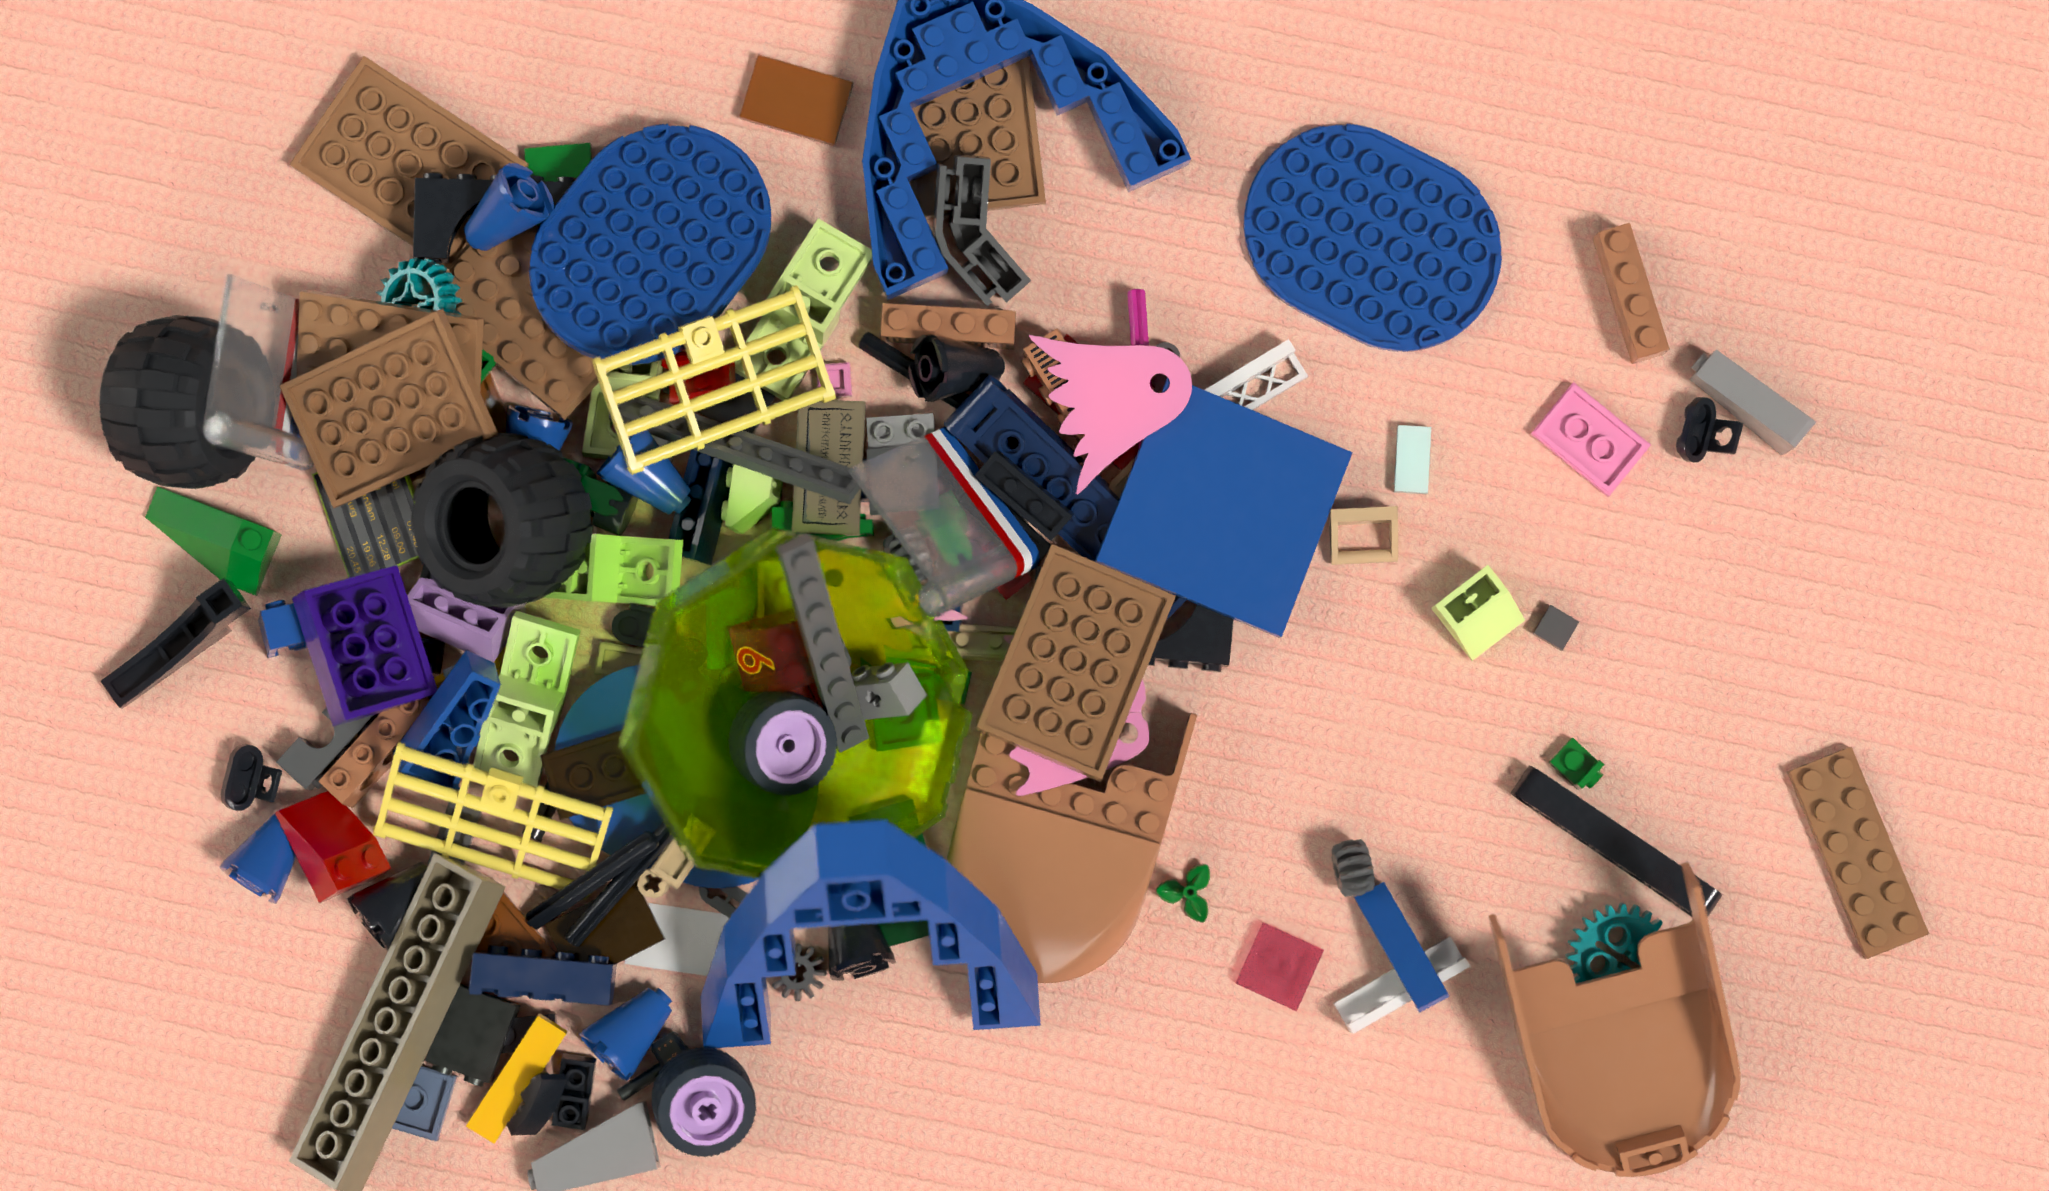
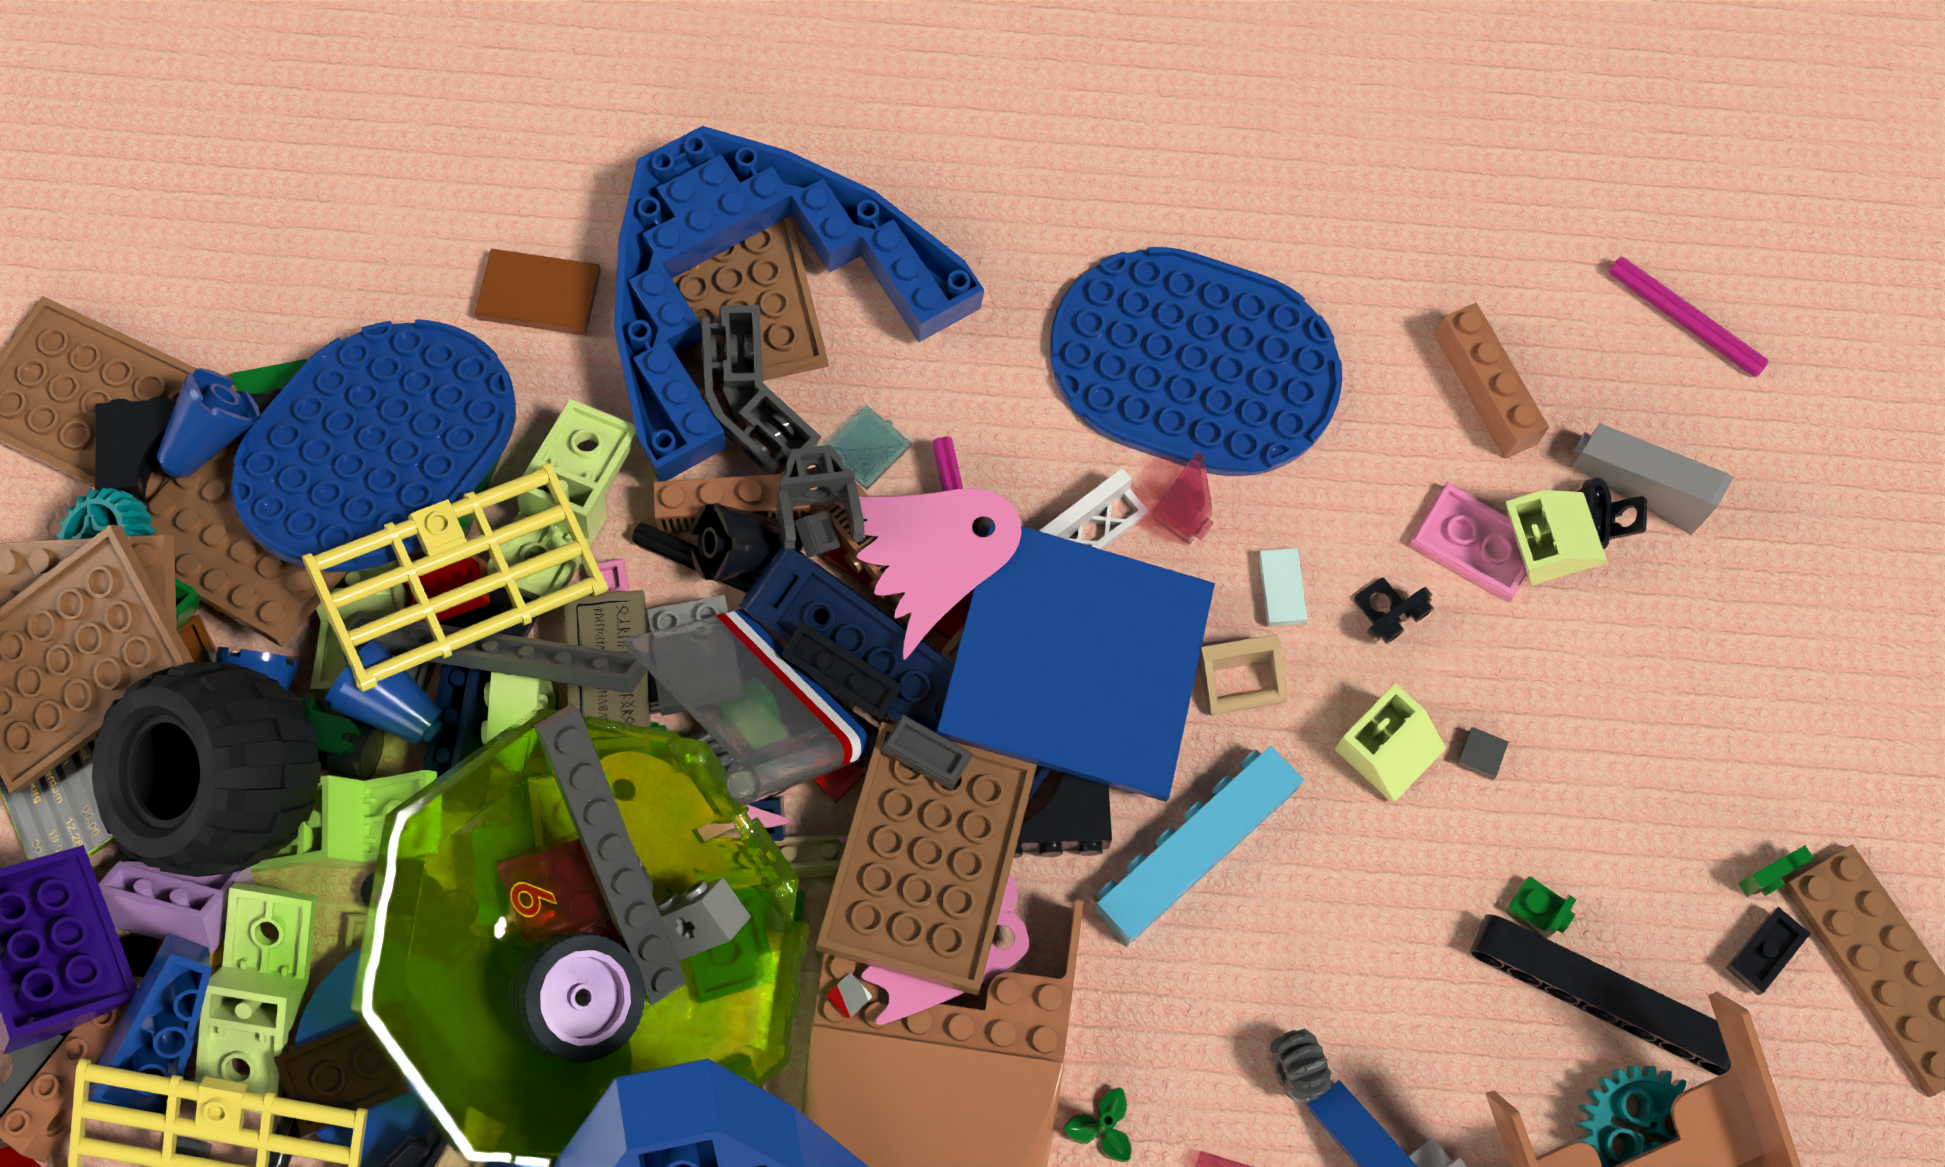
camera: 15 degrees left, 15 degrees down
(997, 768) = (849, 995): none -> light grey sticker
(1017, 371) = (817, 533): none -> dark grey tile
(1034, 330) = (833, 484): none -> dark grey piece
(1070, 284) = (869, 446): none -> clear light blue piece
(1085, 576) = (927, 752): none -> dark grey tile
(1301, 676) = (1197, 845): none -> medium azure brick
(1342, 375) = (1187, 503): none -> clear pink slope
(1497, 505) = (1387, 626): none -> black bracket
(1653, 448) = (1554, 534): none -> yellowish green slope
(1758, 825) = (1768, 951): none -> black plate
(1773, 766) = (1770, 877): none -> green plate
(1825, 250) = (1688, 316): none -> dark pink axle

